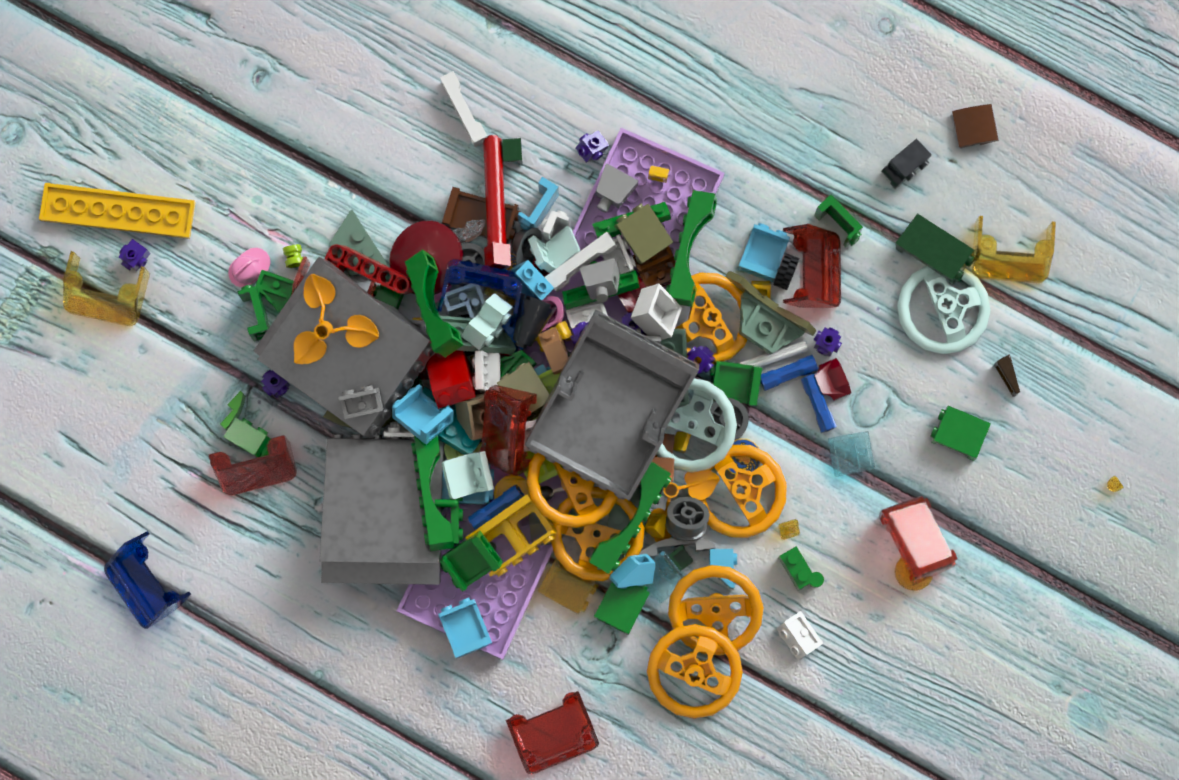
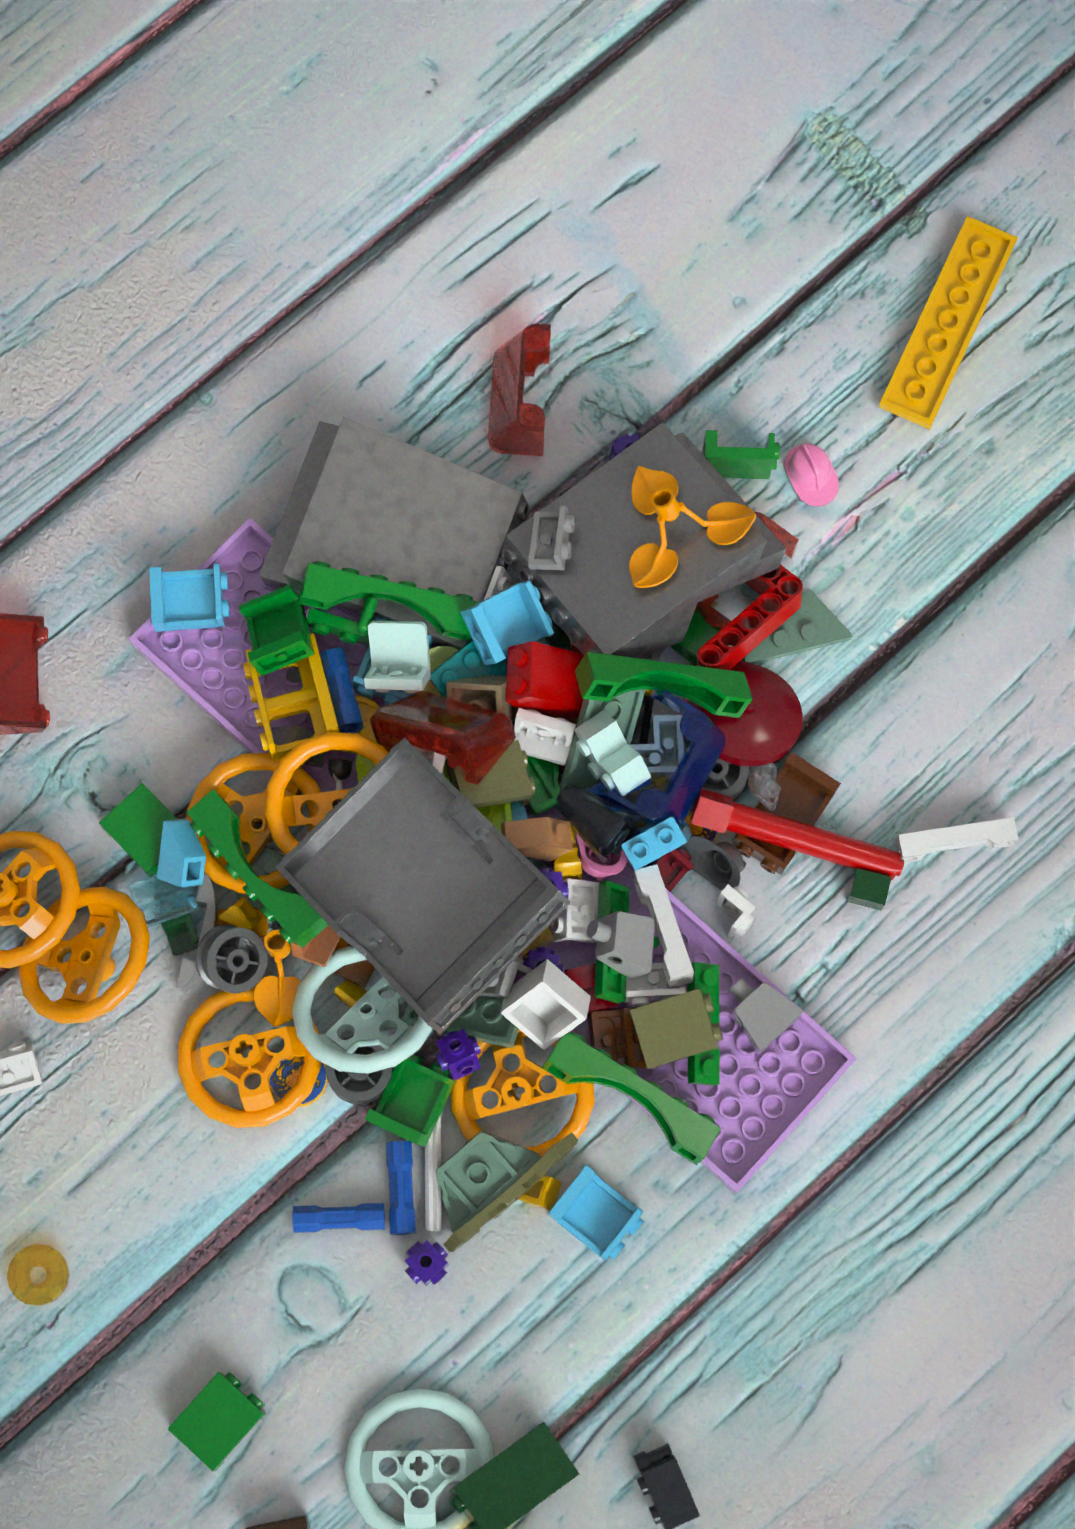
camera: 105 degrees right, 5 degrees down
(105, 307) = (809, 295): clear yellow windscreen -> none
(133, 255) = (875, 322): dark purple brick -> none
(139, 586) = (409, 205): clear blue windscreen -> none
(236, 405) = (613, 395): bright green slope -> none
(248, 438) = (565, 397): hinge -> none
(274, 288) = (770, 494): green wing -> none
(293, 255) = (808, 534): lime wheel -> none
(550, 194) = (768, 903): medium azure panel -> none
(555, 251) = (692, 895): light aqua bracket -> none
(567, 588) = (195, 760): clear yellow panel -> none
(592, 146) = (840, 1007): dark purple brick -> none
(658, 174) = (766, 1089): yellow slope -> none
(725, 558) = (153, 994): medium azure slope -> none
(786, 271) = (554, 1235): black tyre -> none
(789, 529) = (168, 1108): clear yellow slope -> none
(799, 570) = (100, 1101): green hinge -> none
(820, 267) = (540, 1292): clear red windscreen -> none
(833, 380) = (367, 1251): dark red slope -> none
(841, 217) = (635, 1338): green panel -> none
(851, 453) = (246, 1241): clear light blue slope -> none
(918, 539) = (79, 1293): clear red windscreen -> none

